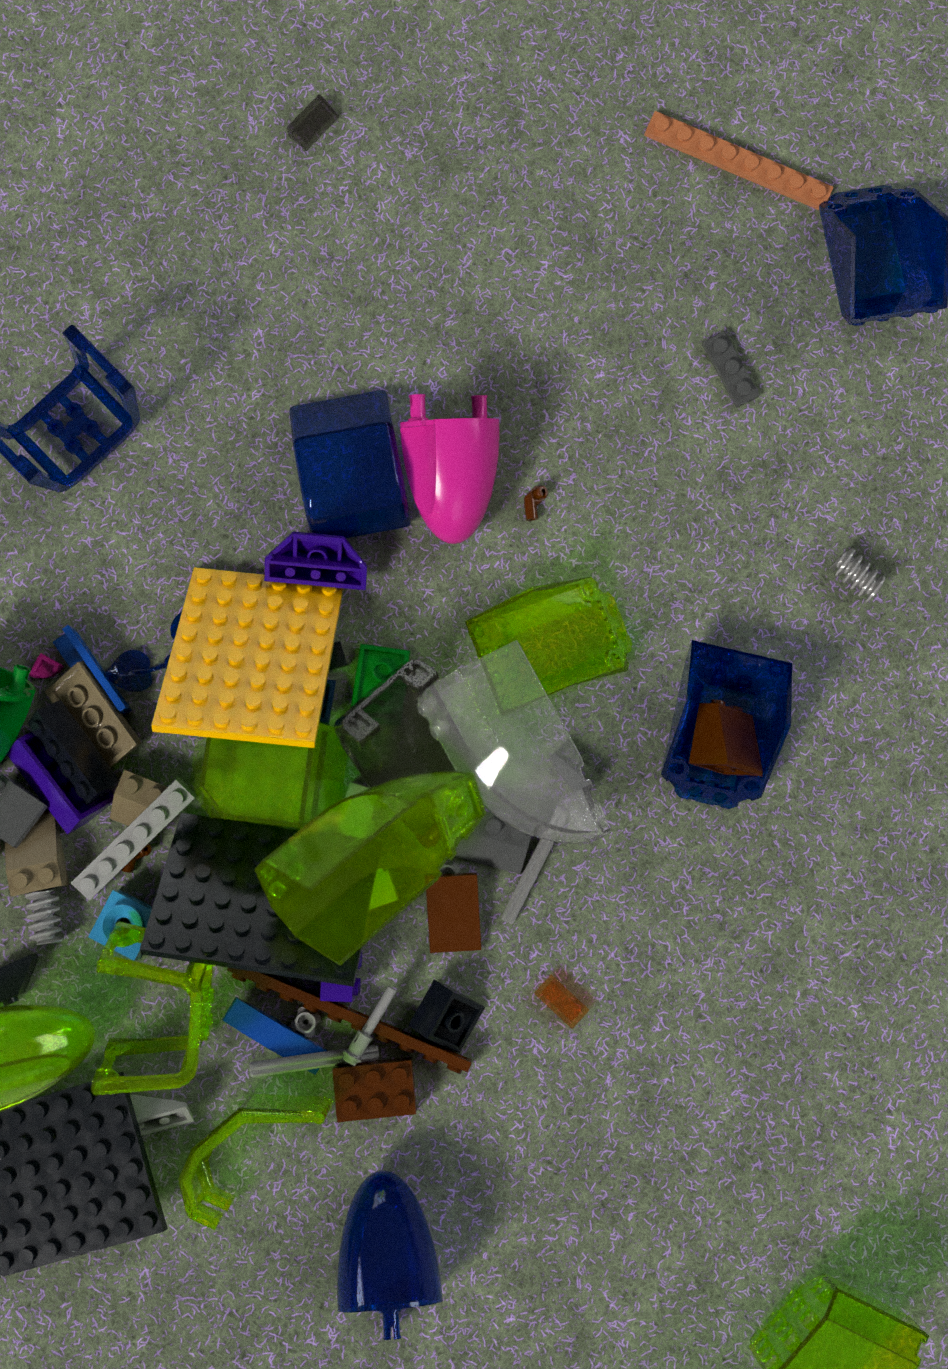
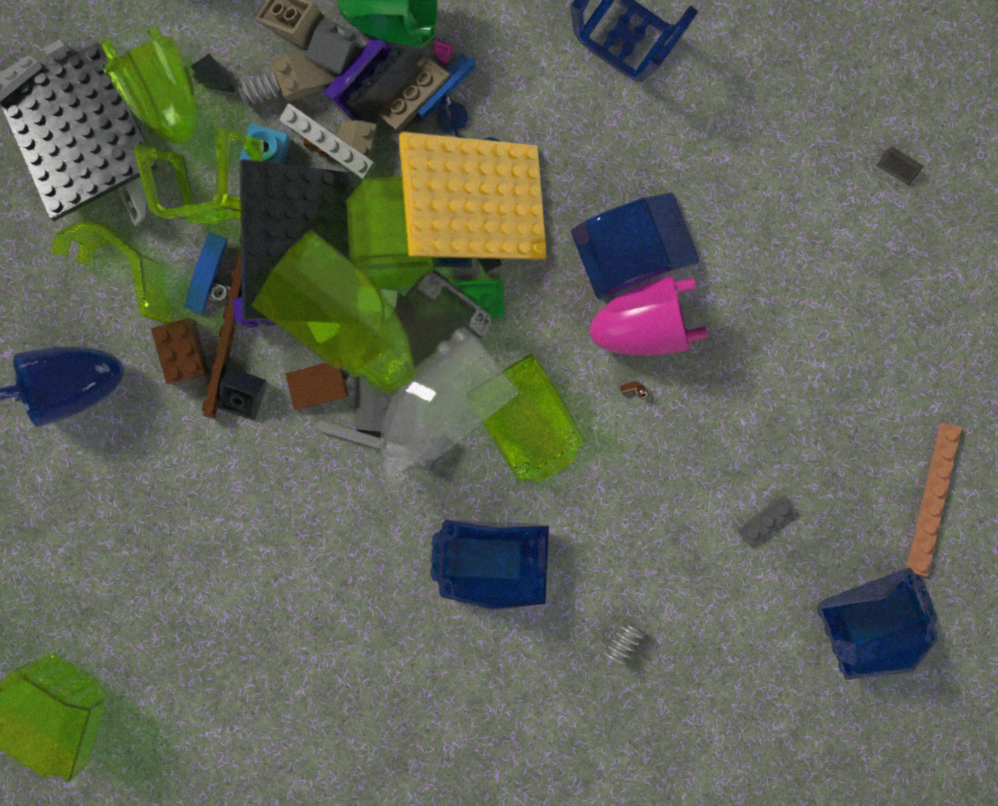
camera: 80 degrees right, 5 degrees up
(306, 1062) = (192, 303): light grey axle -> none
(316, 562) = (556, 234): dark purple wedge -> none
(362, 1038) = (214, 335): light grey pin -> none
(561, 1001) = (268, 475): clear orange plate -> none
(725, 740) = (478, 563): reddish brown slope -> none

